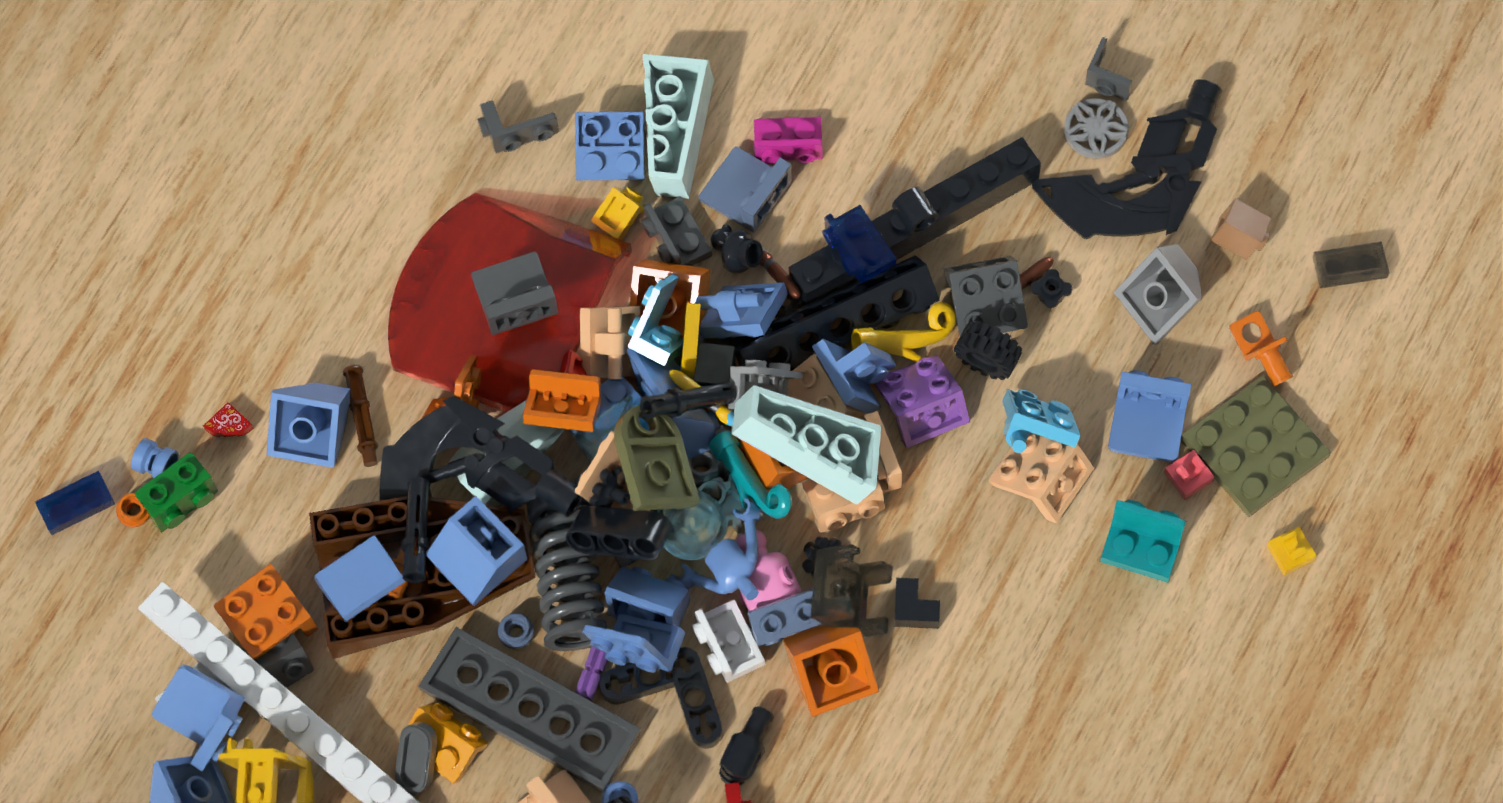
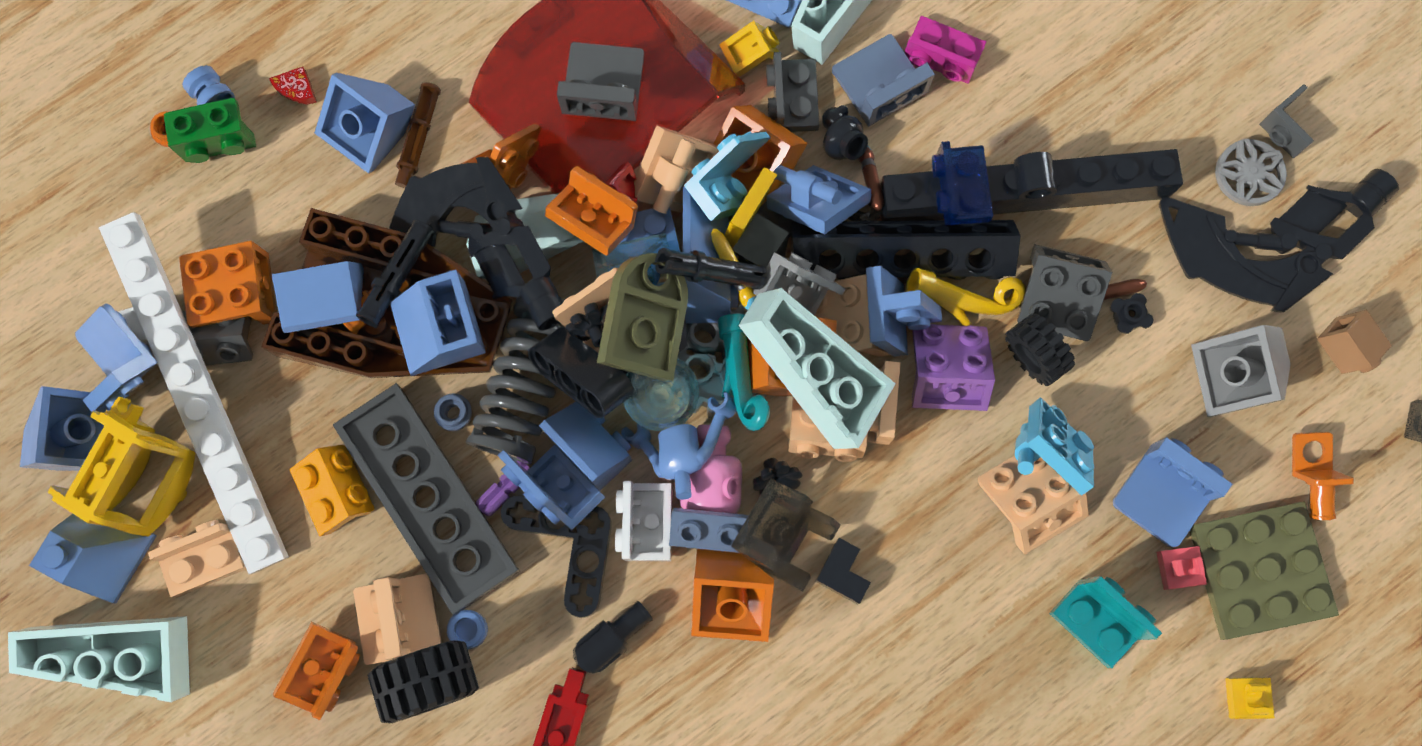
camera: 25 degrees right, 10 degrees up
(75, 503) = (119, 98): clear blue plate -> none
(416, 757) = (293, 495): dark grey tile -> none

